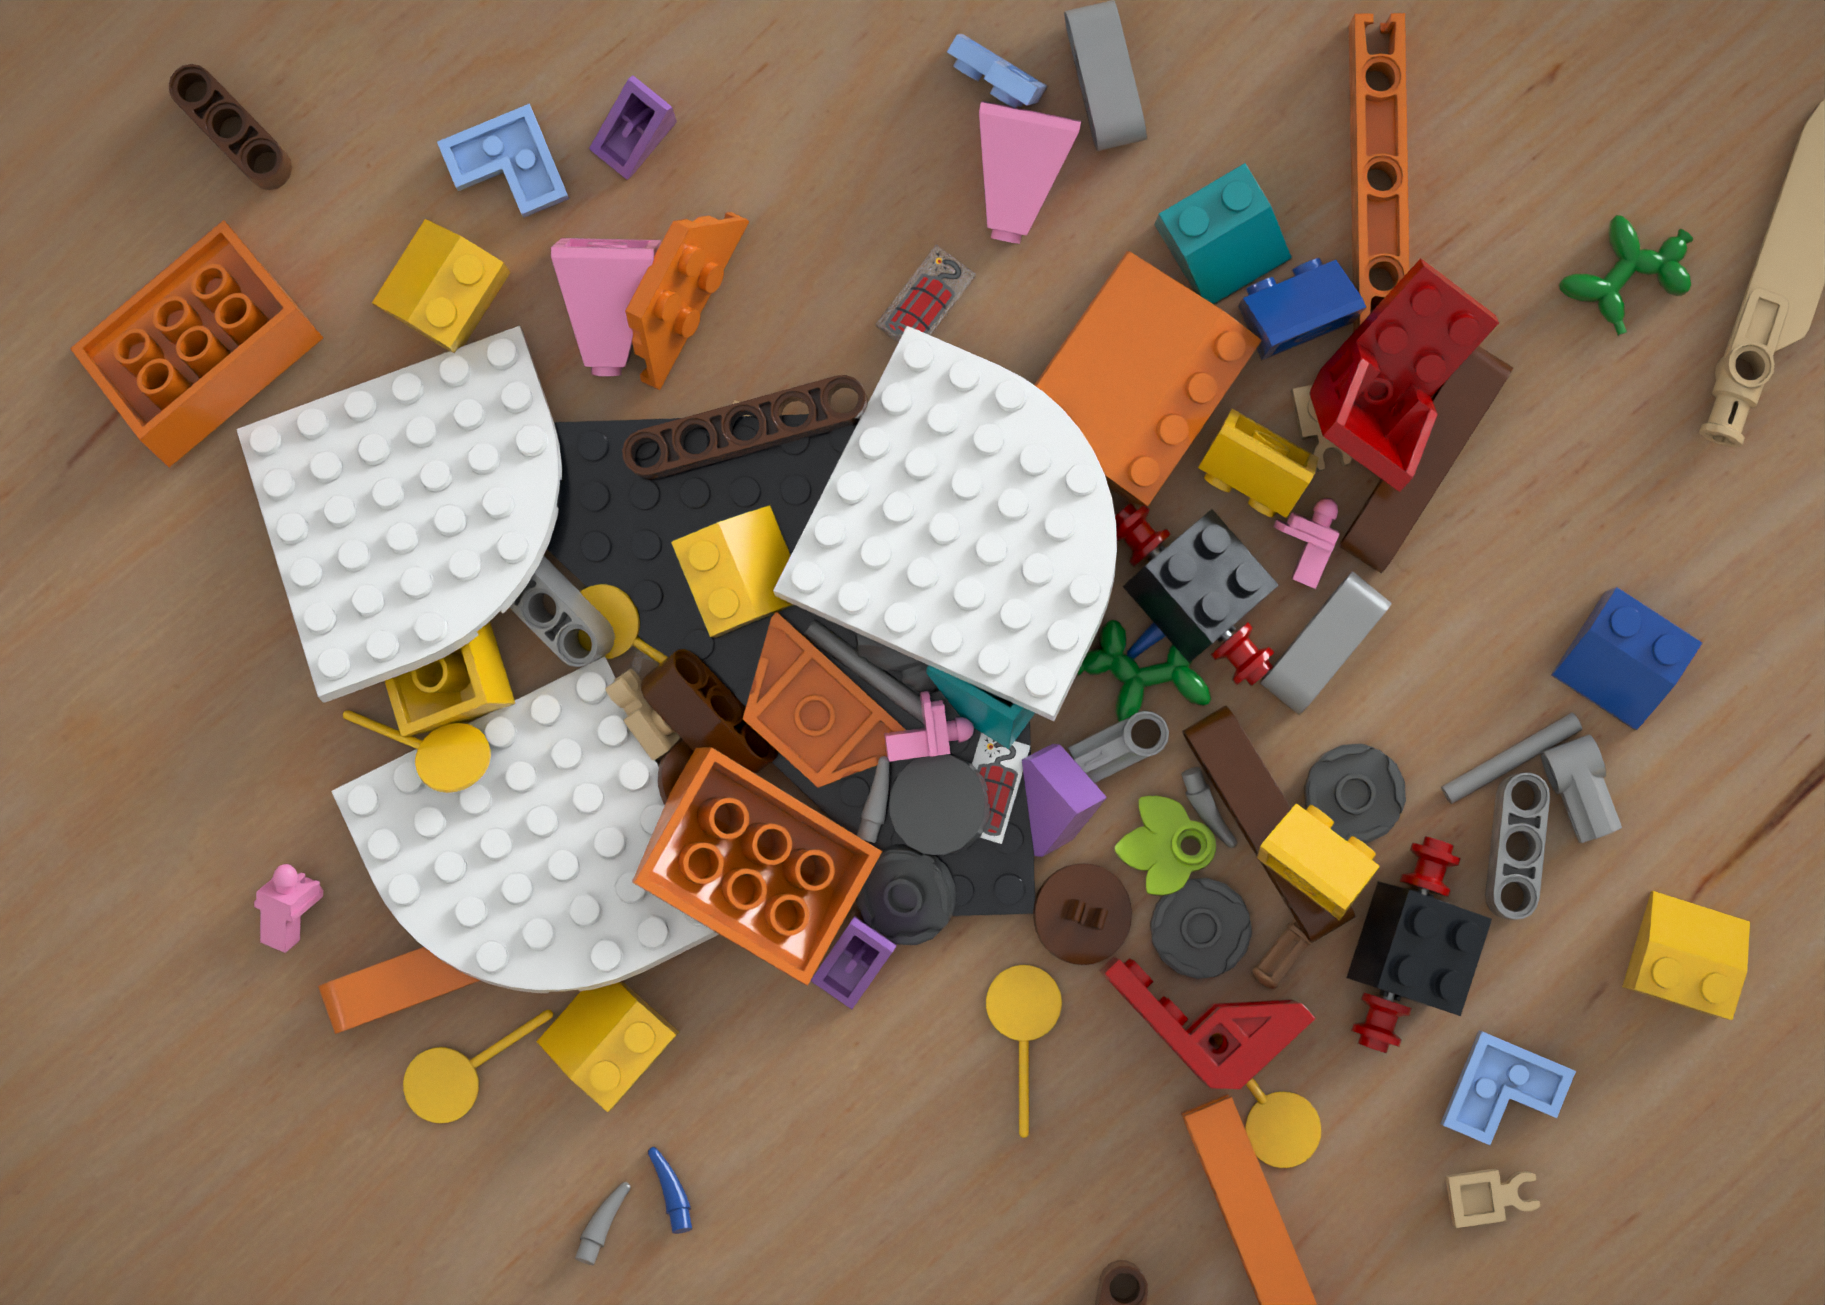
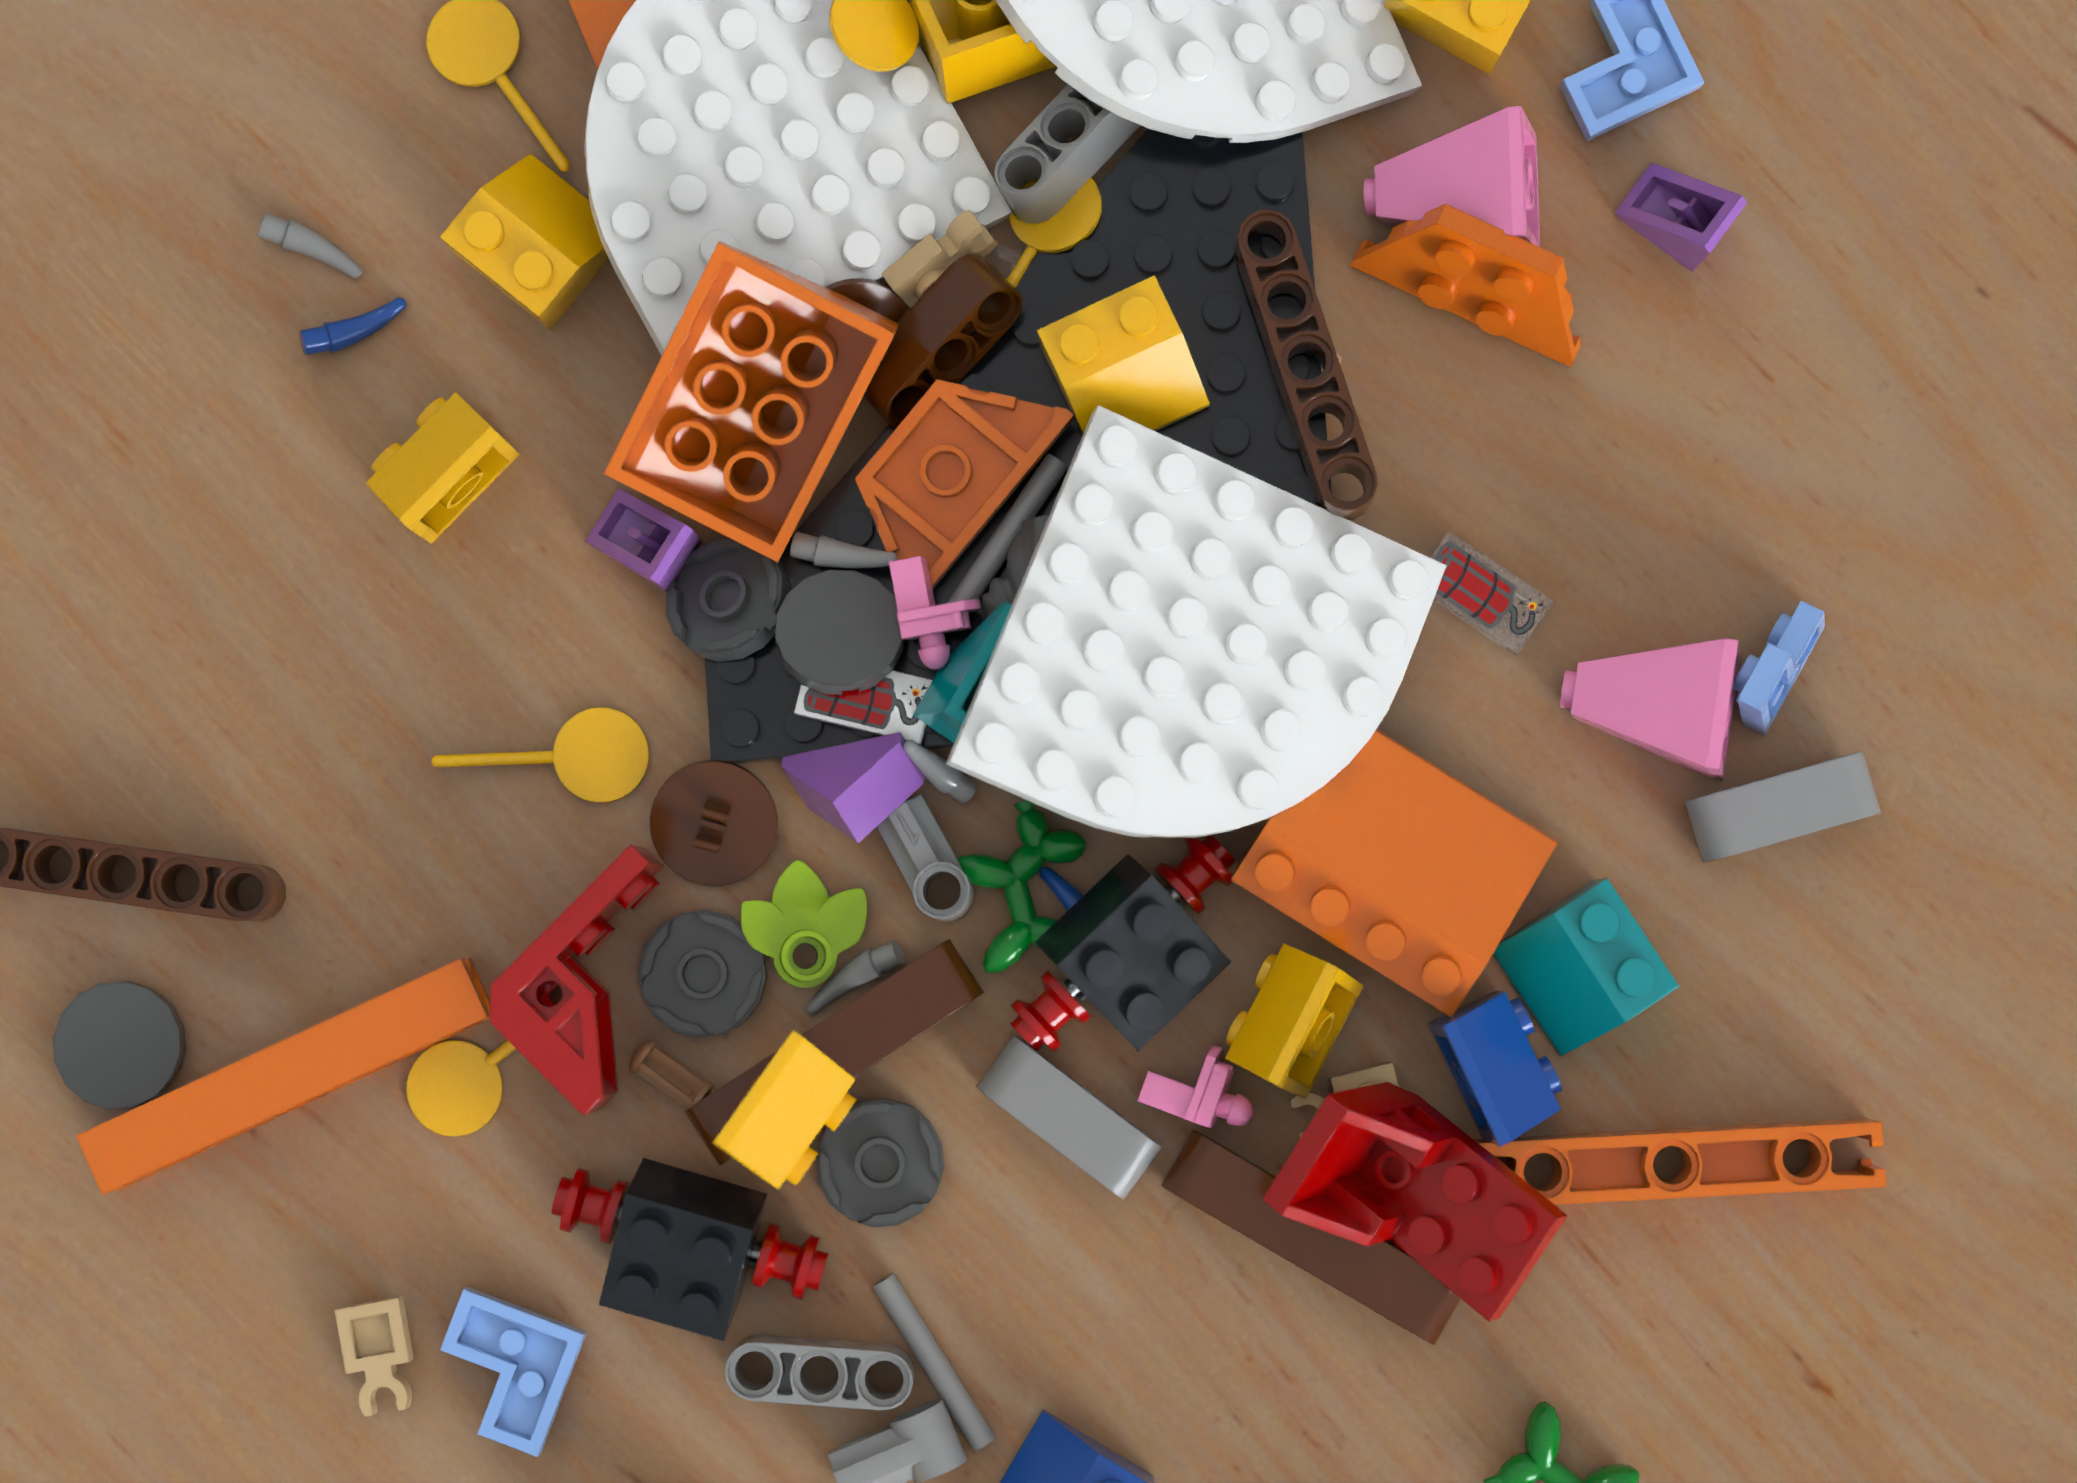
camera: 90 degrees right, 0 degrees up
(789, 1122) = (440, 467): none -> yellow slope
(1052, 731) = (941, 776): none -> light grey helmet

